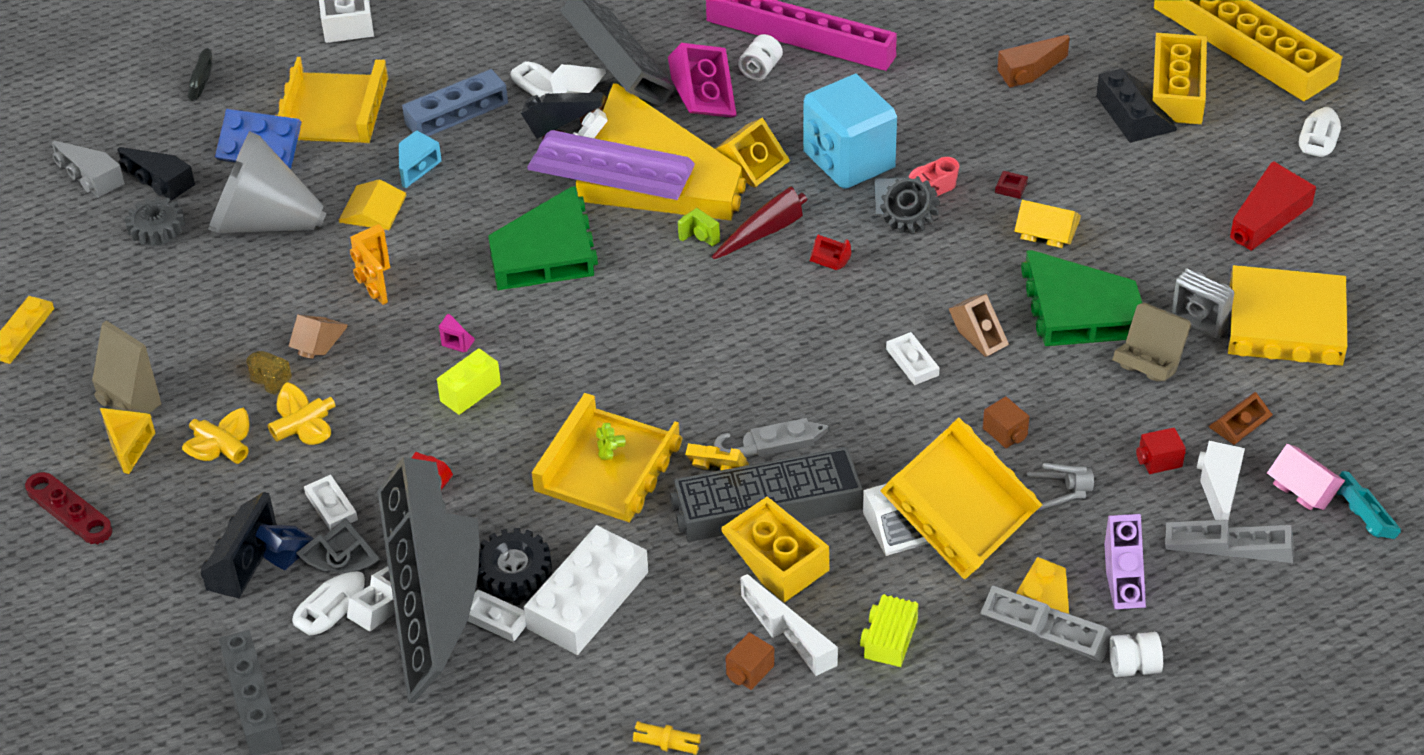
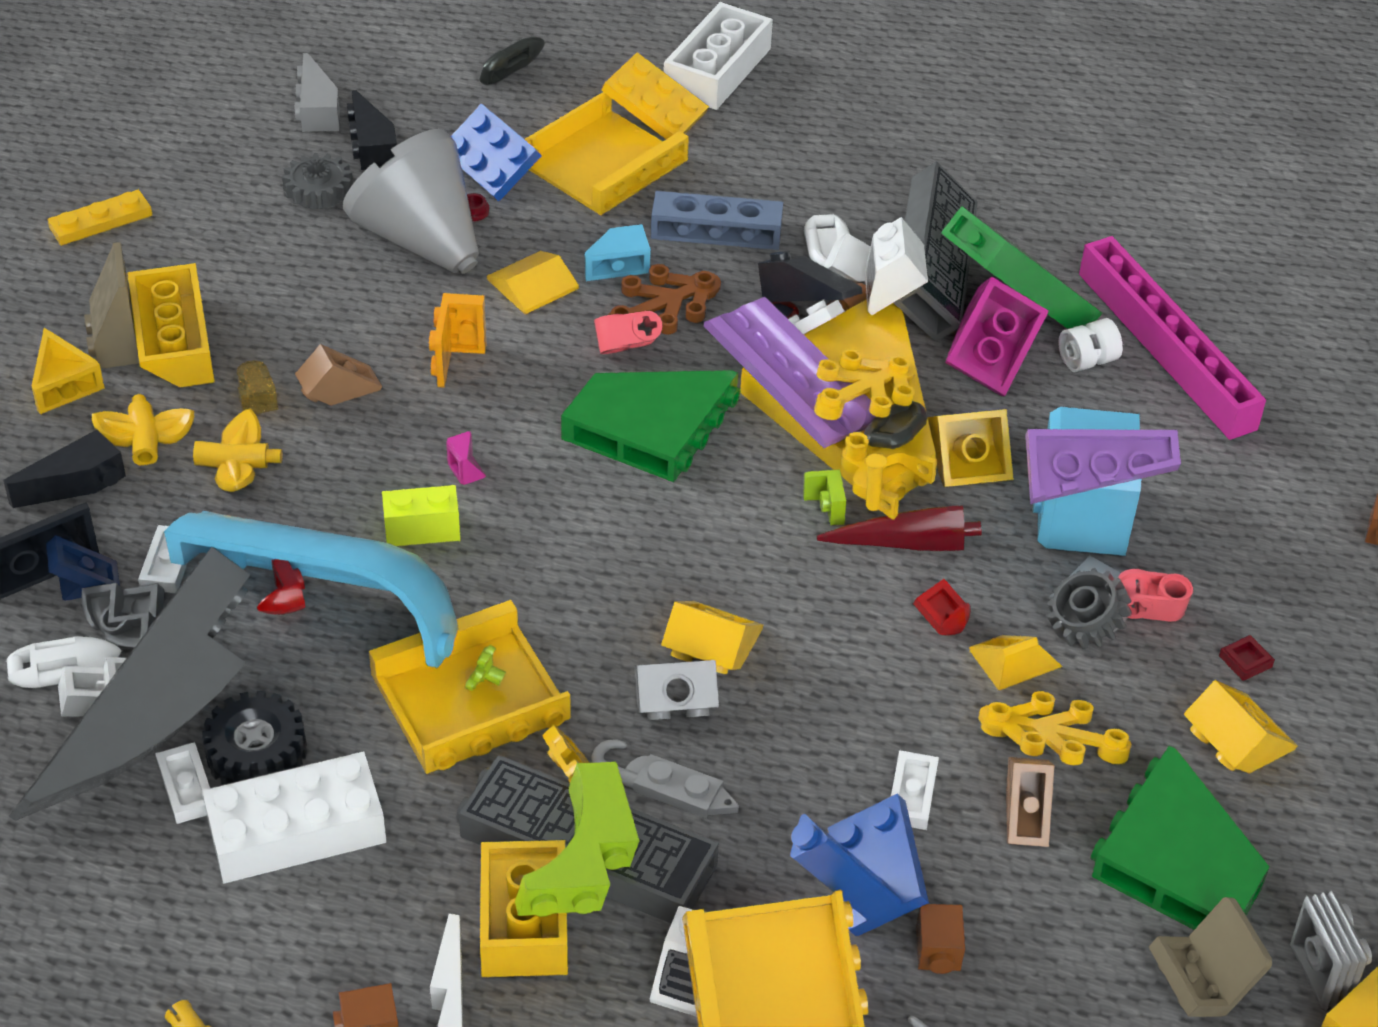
camera: 35 degrees right, 0 degrees up
(181, 362) = (171, 324): none -> yellow slope
(204, 491) = (70, 472): none -> black slope
(332, 47) = (654, 97): none -> yellow plate
(467, 428) = (328, 558): none -> medium azure panel
(476, 200) = (621, 331): none -> coral piece
(484, 150) = (701, 285): none -> dark orange plant
(614, 70) = (894, 265): none -> white slope
(673, 28) = (1019, 270): none -> green slope
(673, 132) = (893, 370): none -> yellow plant
(710, 161) = (898, 427): none -> pearl dark grey piece
(711, 194) = (868, 469): none -> yellow piece
(717, 345) = (710, 635): none -> yellow slope
(717, 389) = (698, 677): none -> brick
(791, 484) = (601, 840): none -> lime arch
(860, 111) = (1089, 459): none -> medium lavender wing
(892, 257) = (1013, 659): none -> yellow slope
(922, 292) = (1002, 721): none -> yellow plant
(936, 401) = (868, 859): none -> blue piece

